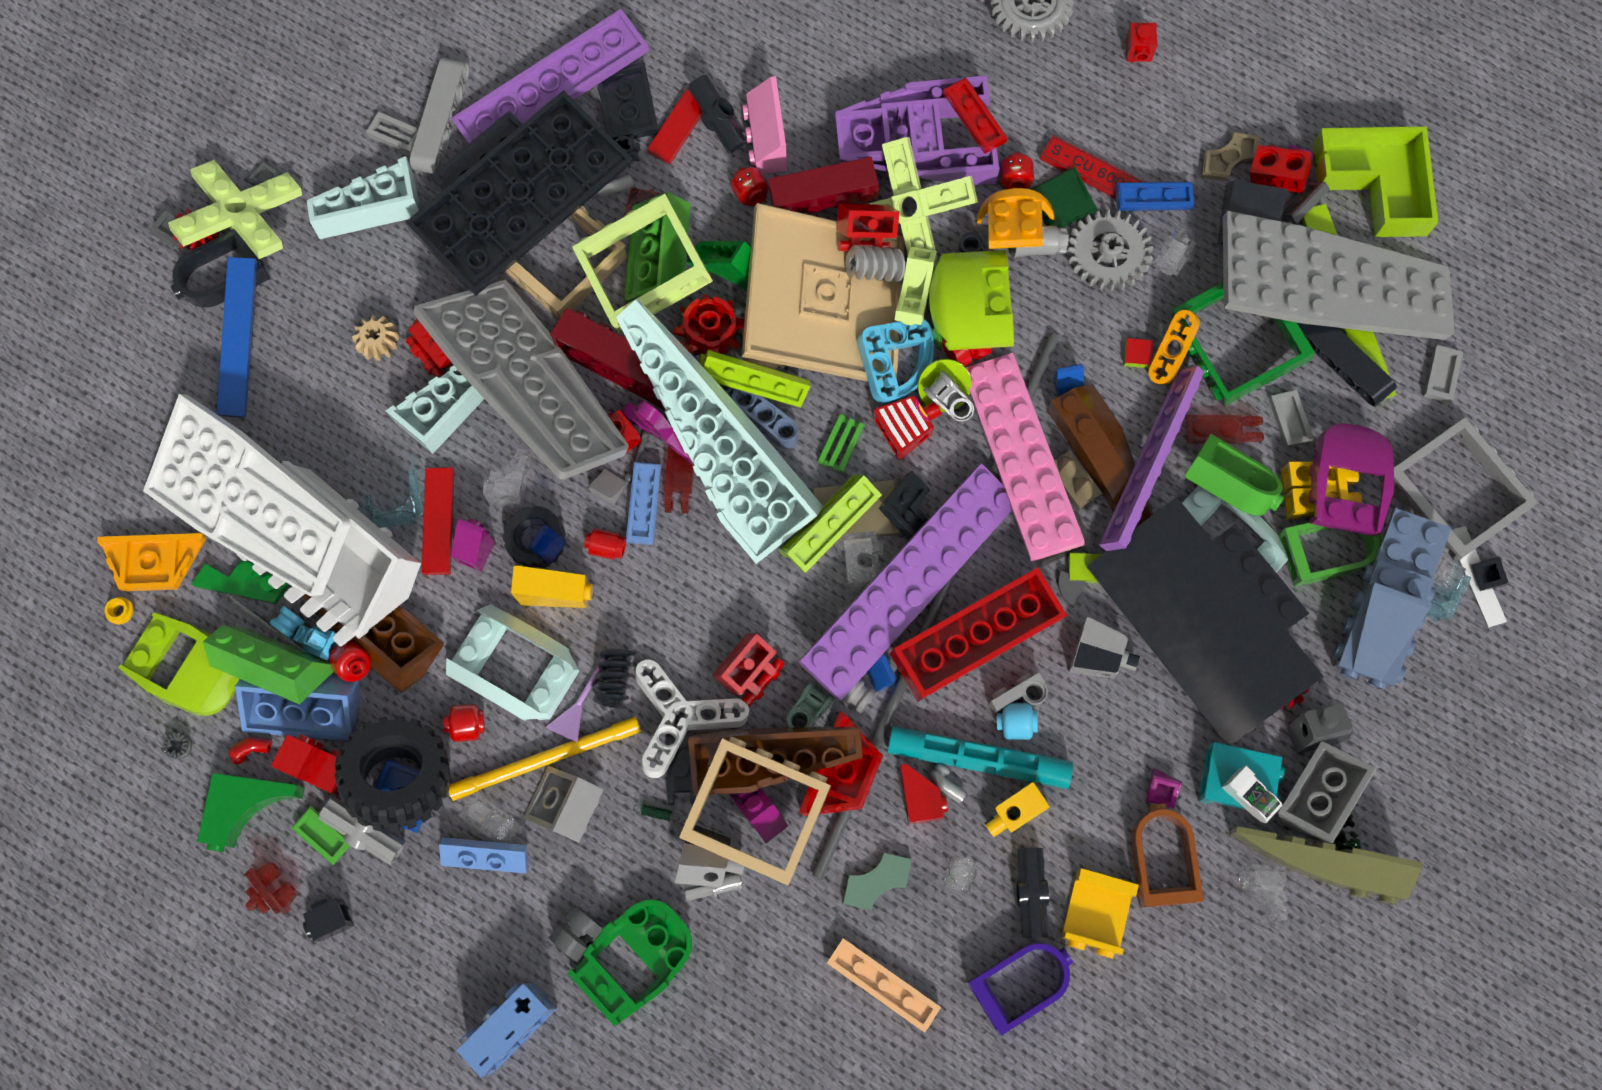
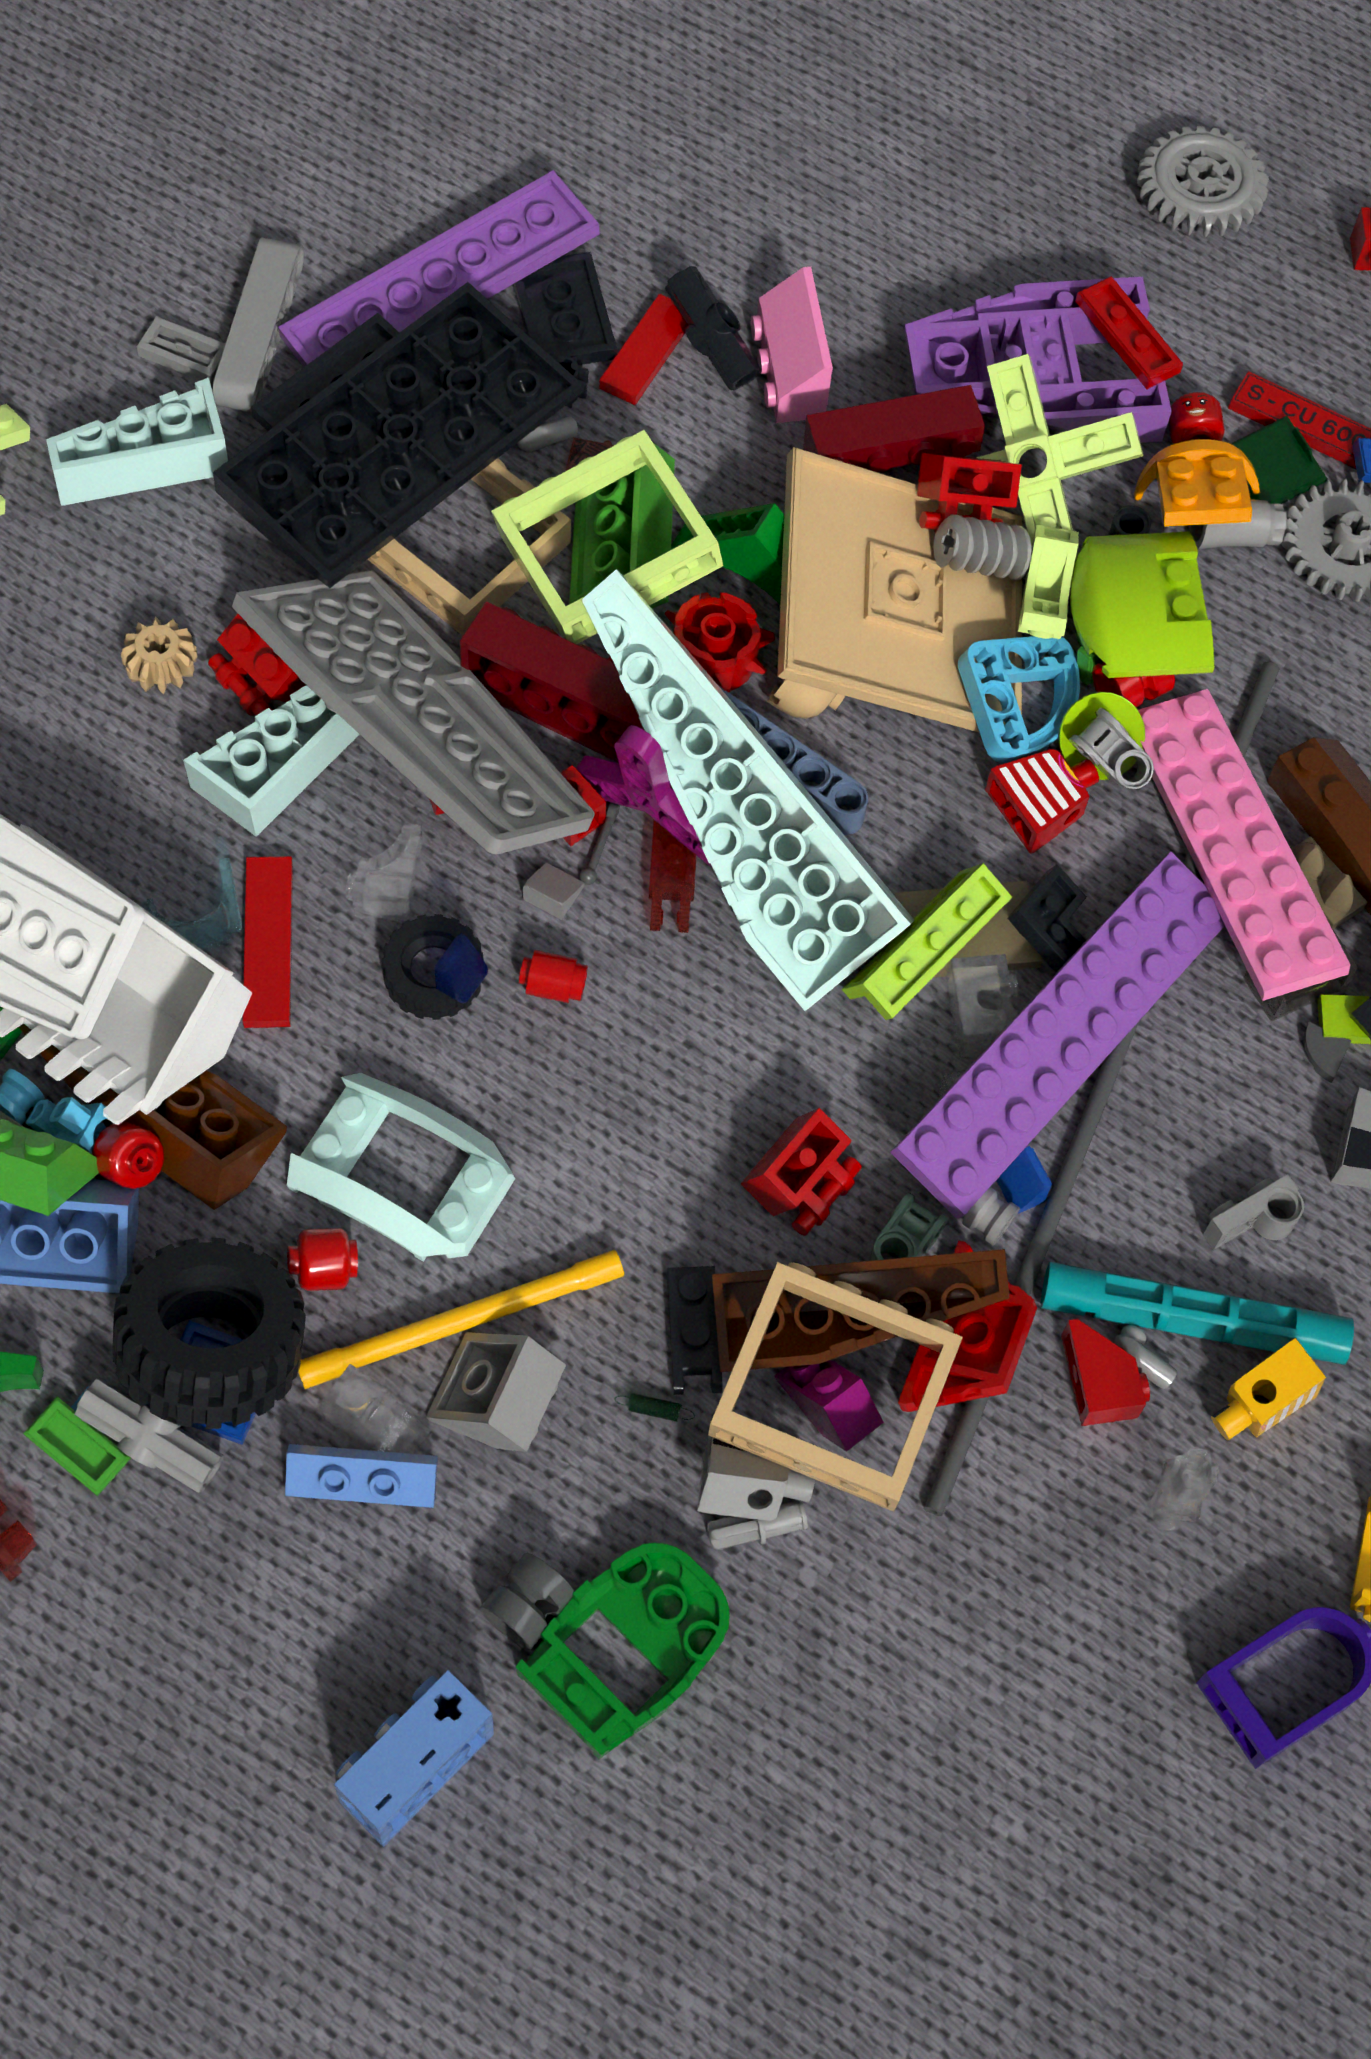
camera: 10 degrees left, 10 degrees down
(306, 761) = (57, 1325): red brick -> none
(326, 919) = (88, 1584): black brick -> none
(471, 544) = (330, 972): magenta slope -> none
(550, 588) = (465, 1042): yellow slope -> none
(569, 722) = (502, 1259): lavender piece -> none
(613, 678) = (573, 1187): black piece -> none
(643, 503) = (614, 915): medium blue plate -> none
(691, 720) = (686, 1228): white piece -> none
(749, 186) = (768, 435): red head -> none
(755, 378) = (803, 715): lime fence -> none
(850, 423) = (948, 797): bright green tile -> none
(866, 888) = (1017, 1528): sand green tile -> none
(884, 985) = (1058, 1685): light nougat plate -> none
(977, 634) = (1182, 1115): red brick -> none
(1018, 721) = (1256, 1255): medium azure head -> none
(1032, 893) = (1299, 1531): black piece -> none
(1068, 378) = (1299, 725): blue slope -> none

